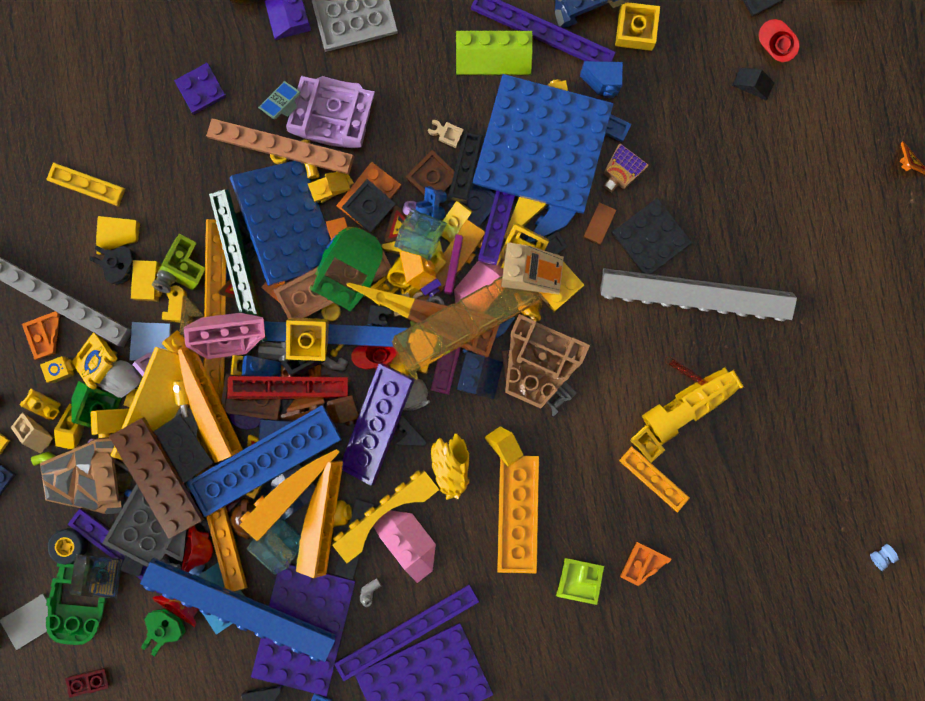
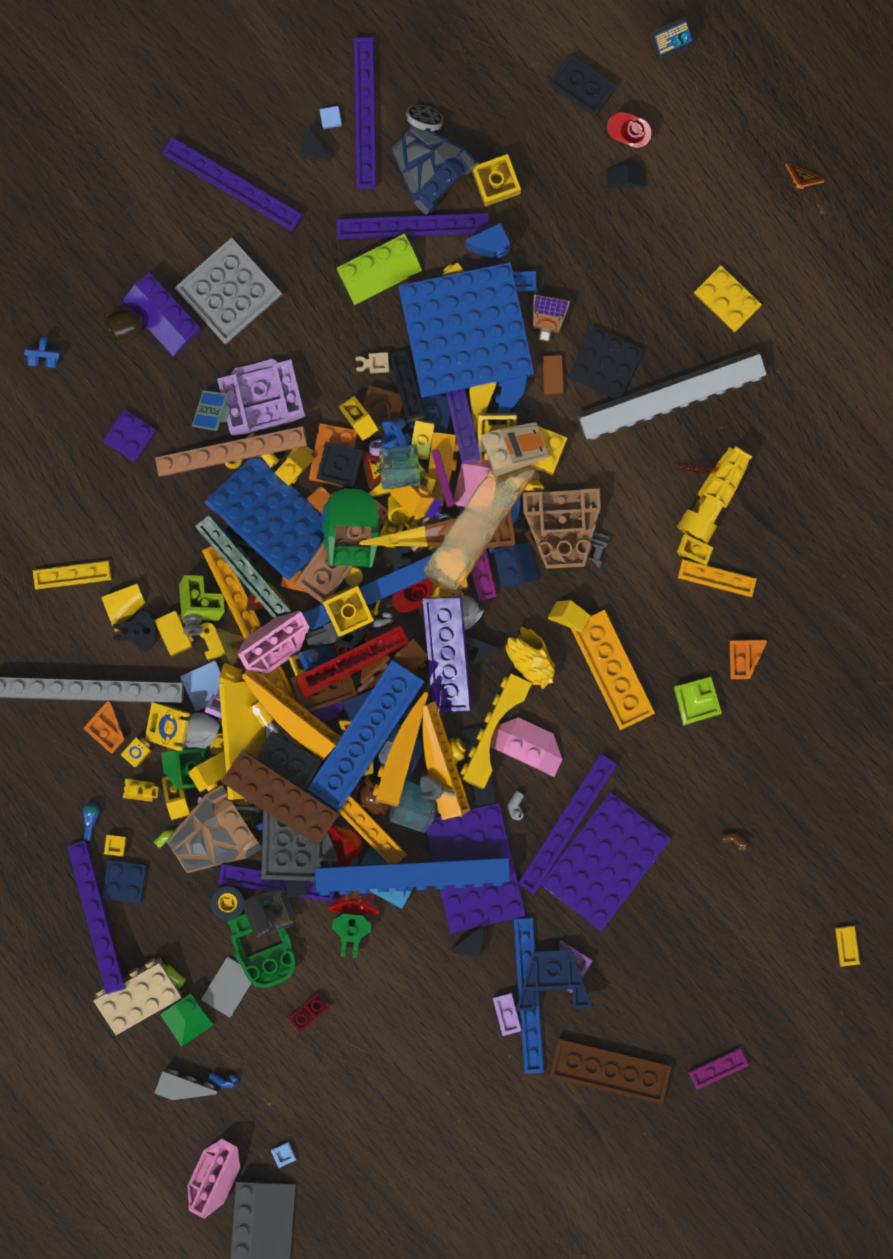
camera: 25 degrees left, 0 degrees up
(31, 433) = (142, 820): tan slope -> none
(300, 541) = (433, 788): none -> dark grey piece
(406, 173) = (358, 418): none -> yellow slope
(789, 235) = (727, 299): none -> yellow plate

